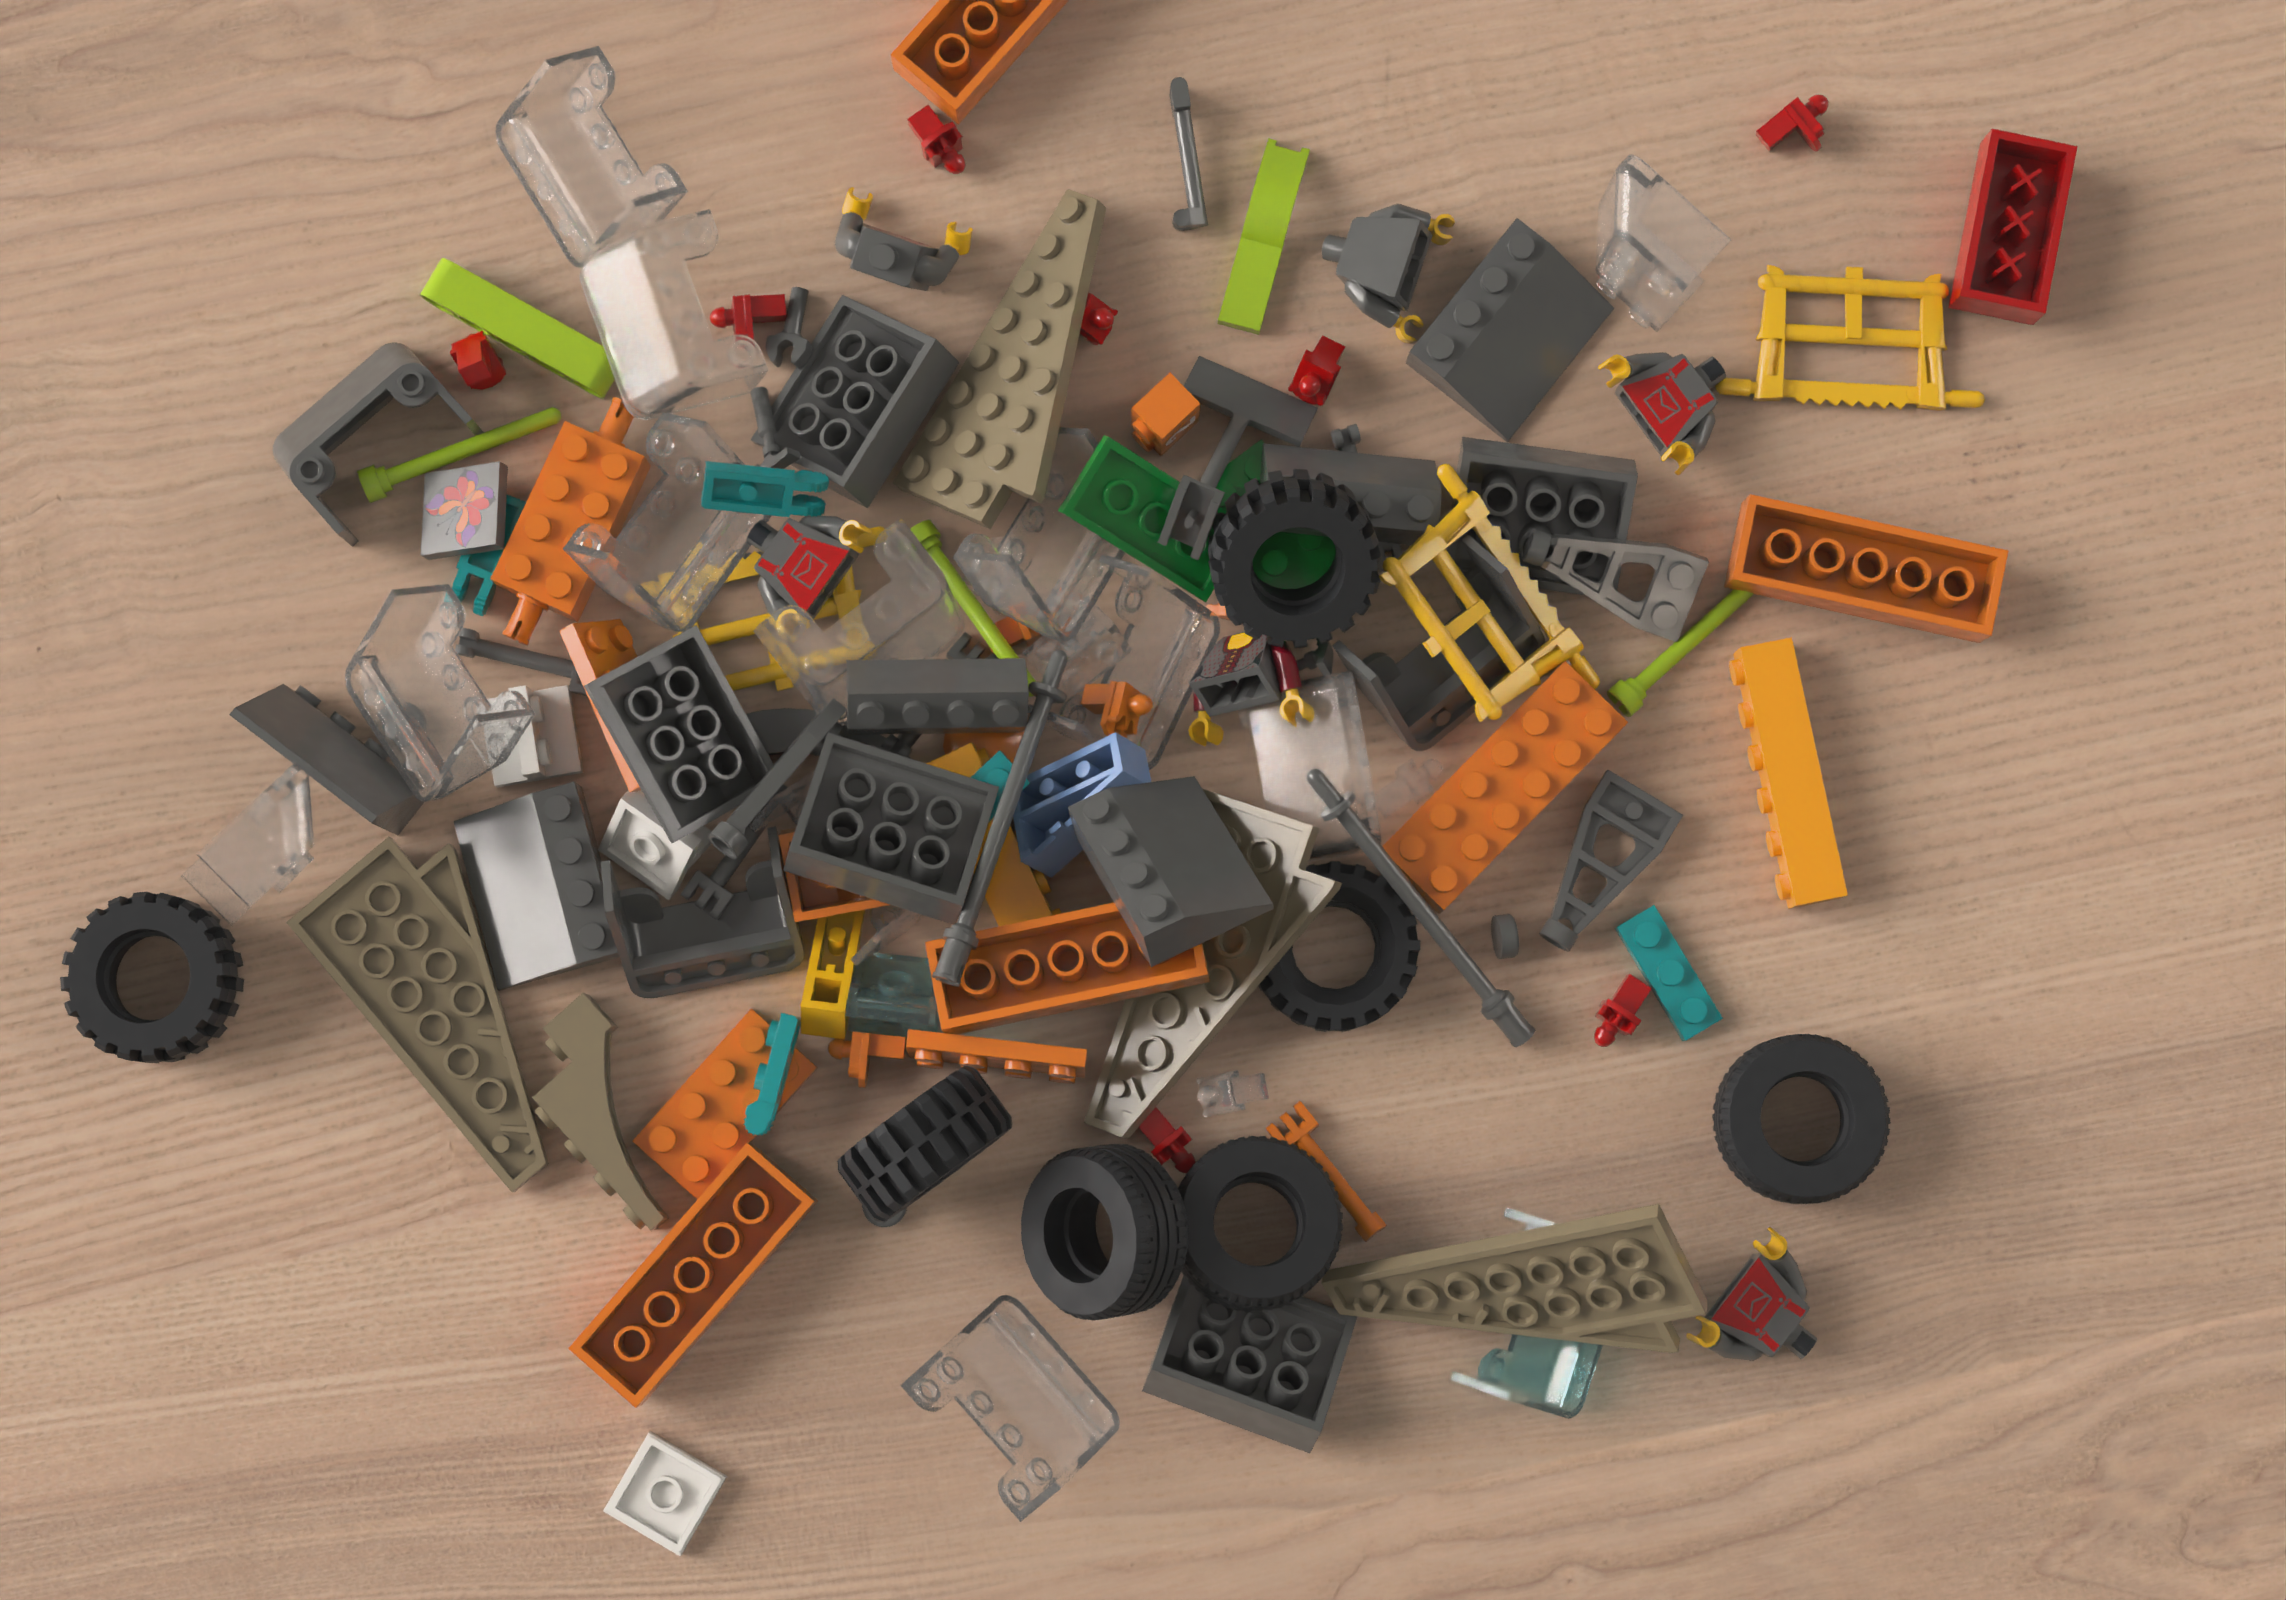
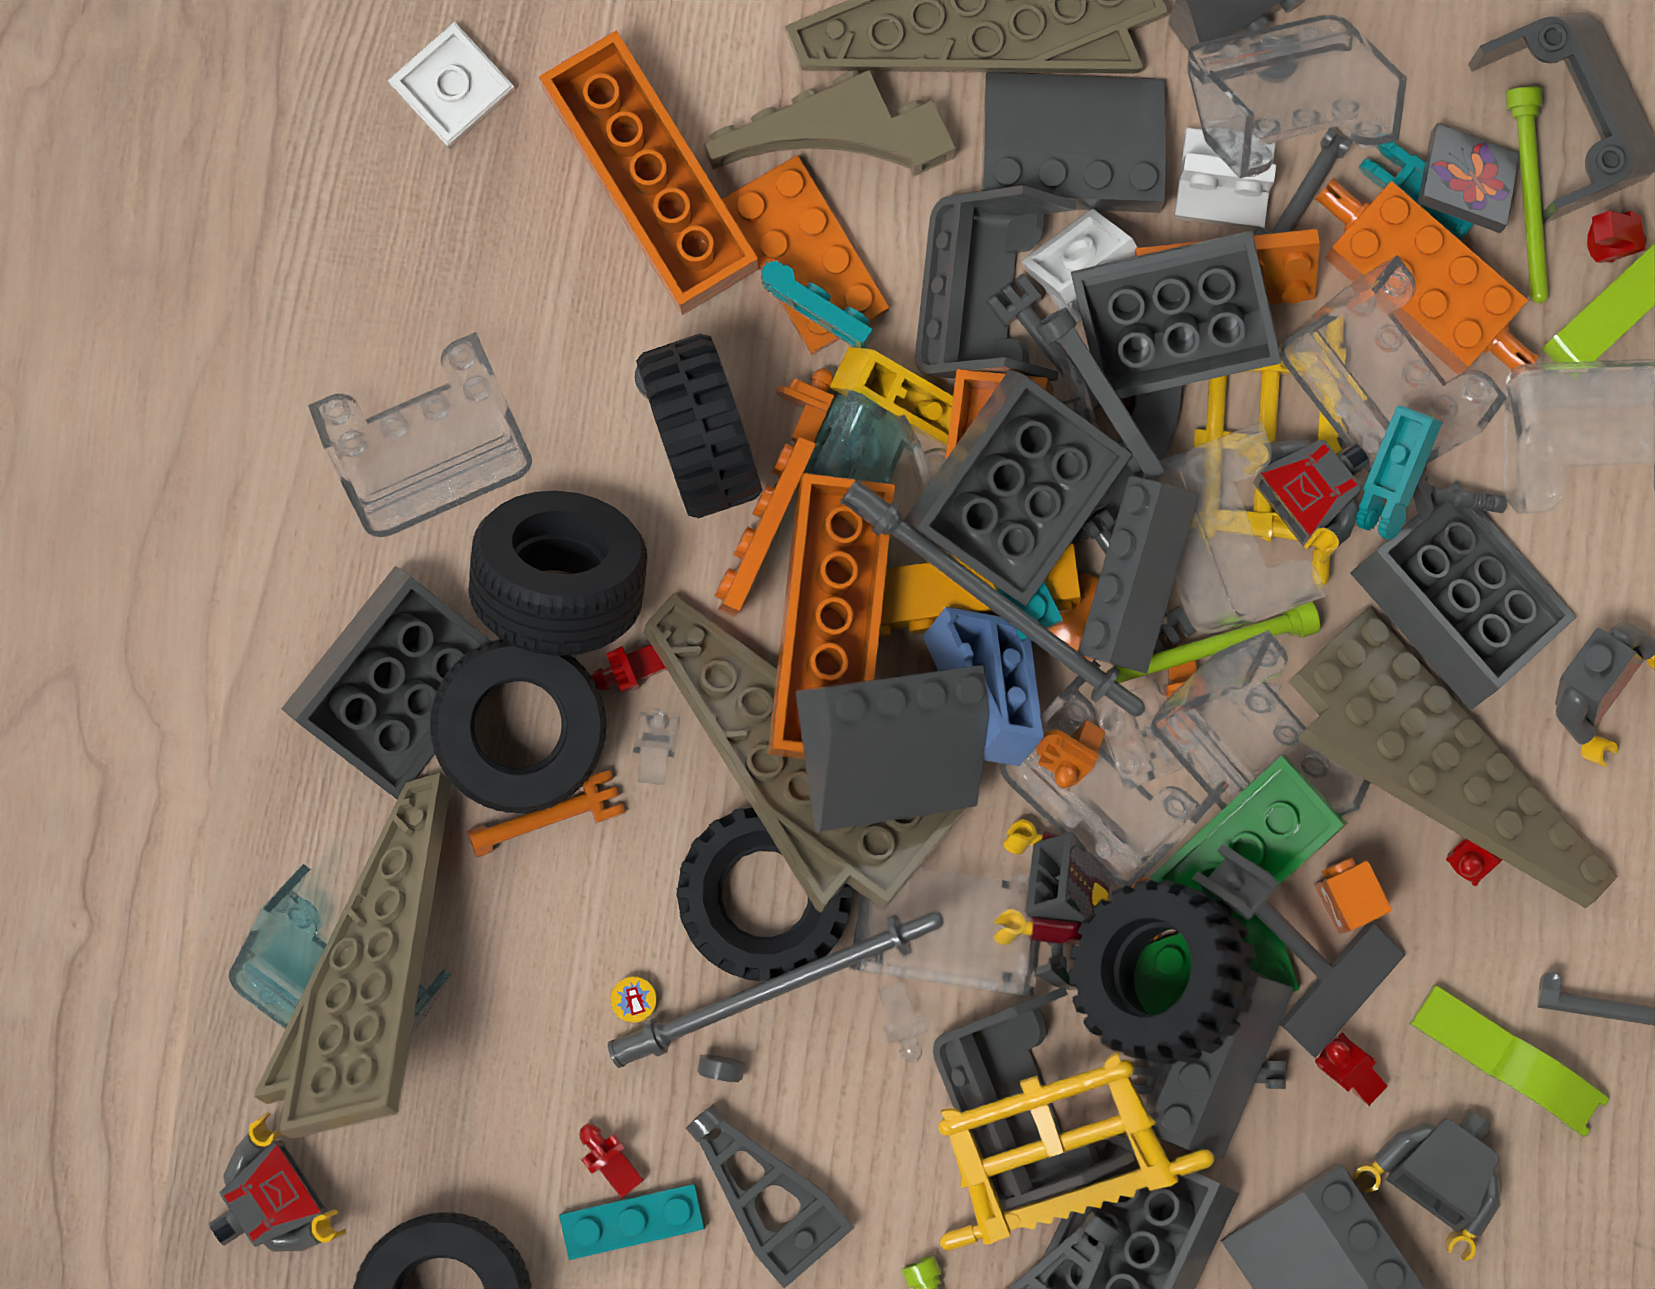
camera: 110 degrees right, 0 degrees up
(749, 310) = (1587, 517): red piece -> none
(792, 332) = (1550, 553): dark grey bar -> none
(1468, 1037) = (633, 999): none -> tile
(1503, 786) = (870, 1115): orange brick -> none

